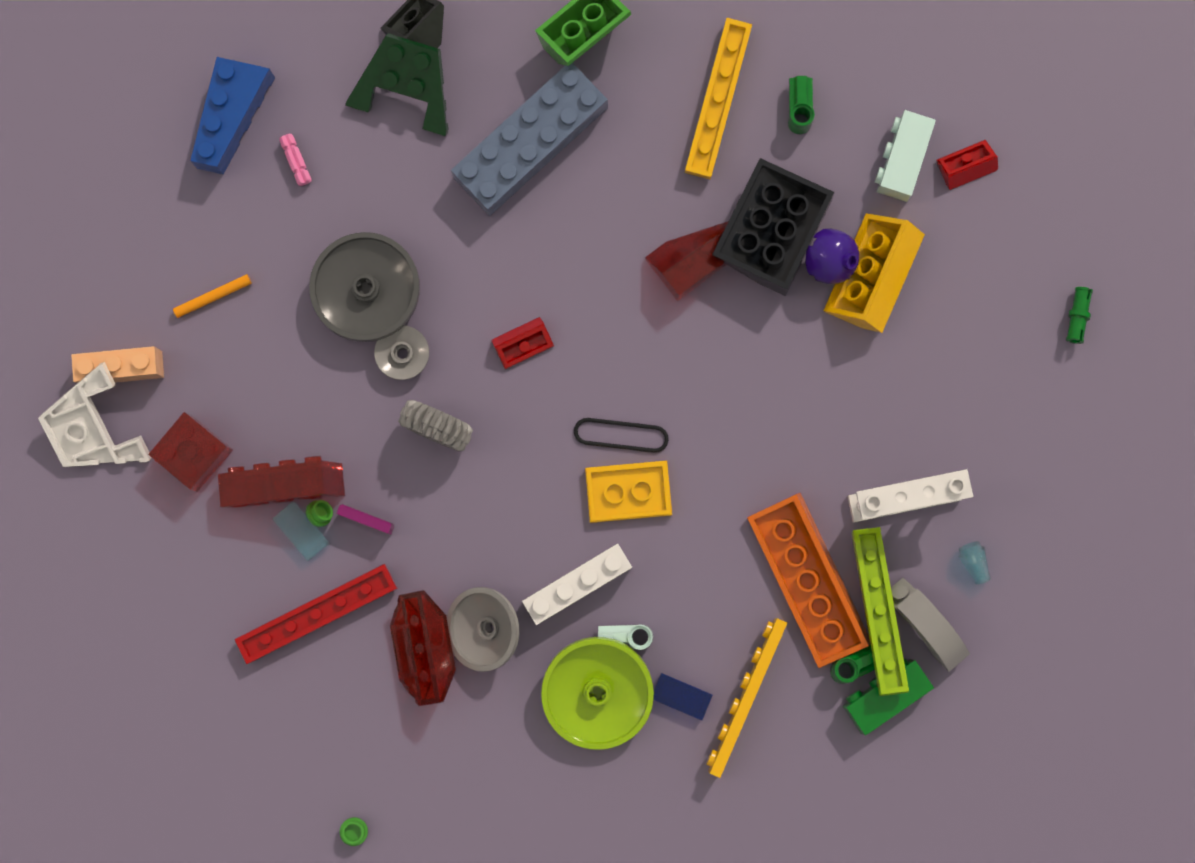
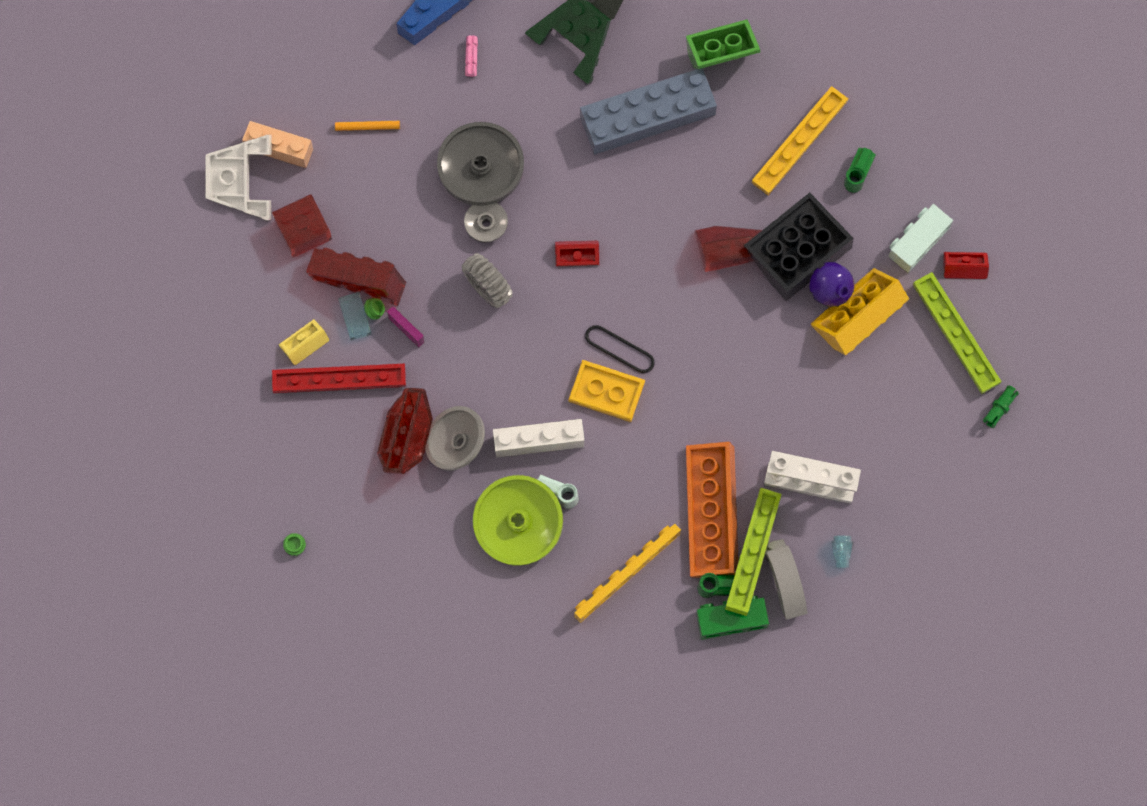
camera: 25 degrees right, 10 degrees down
(256, 587) = (304, 342): none -> light yellow slope
(682, 696) = (579, 553): clear blue tile -> none
(993, 250) = (957, 333): none -> lime plate

